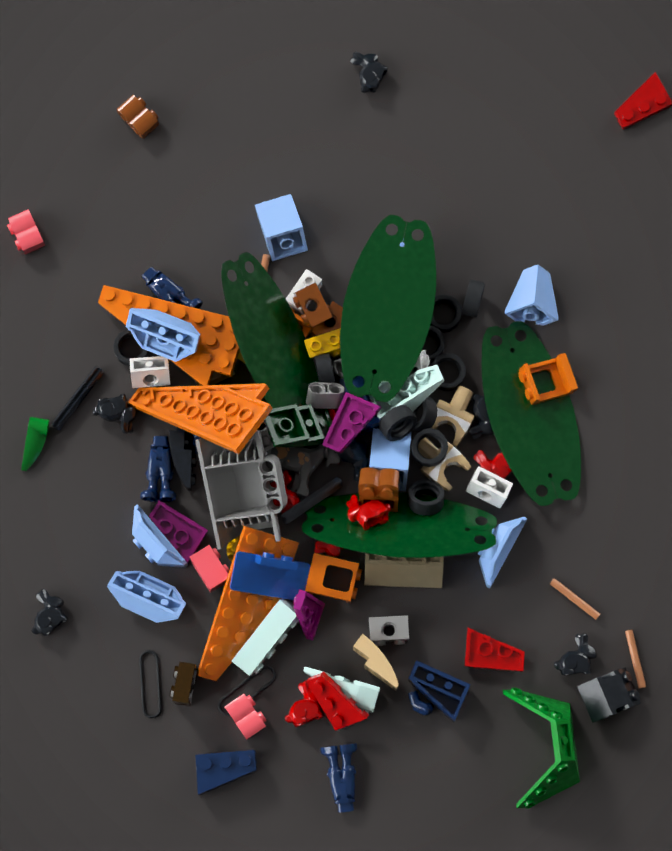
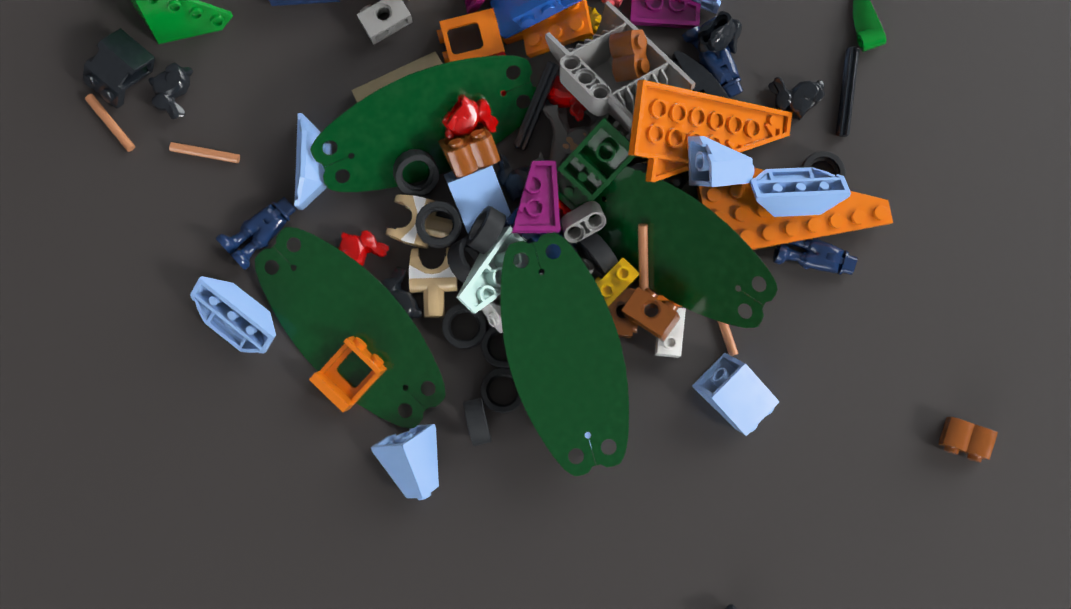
camera: 150 degrees right, 5 degrees up
(26, 232) = (1011, 240): coral brick -> none
(149, 372) = (788, 152): white brick -> none
(150, 481) = (720, 33): none -> black animal
(212, 374) = (716, 164): none -> light blue slope
(227, 494) = (629, 55): none -> dark orange brick
(296, 347) = (643, 256): none -> nougat bar
(489, 487) = (353, 219): white brick -> none
(491, 654) = (264, 48): red wing -> none
(559, 517) = (261, 227): none -> dark blue piece
(608, 461) = (234, 315): none -> light blue wedge

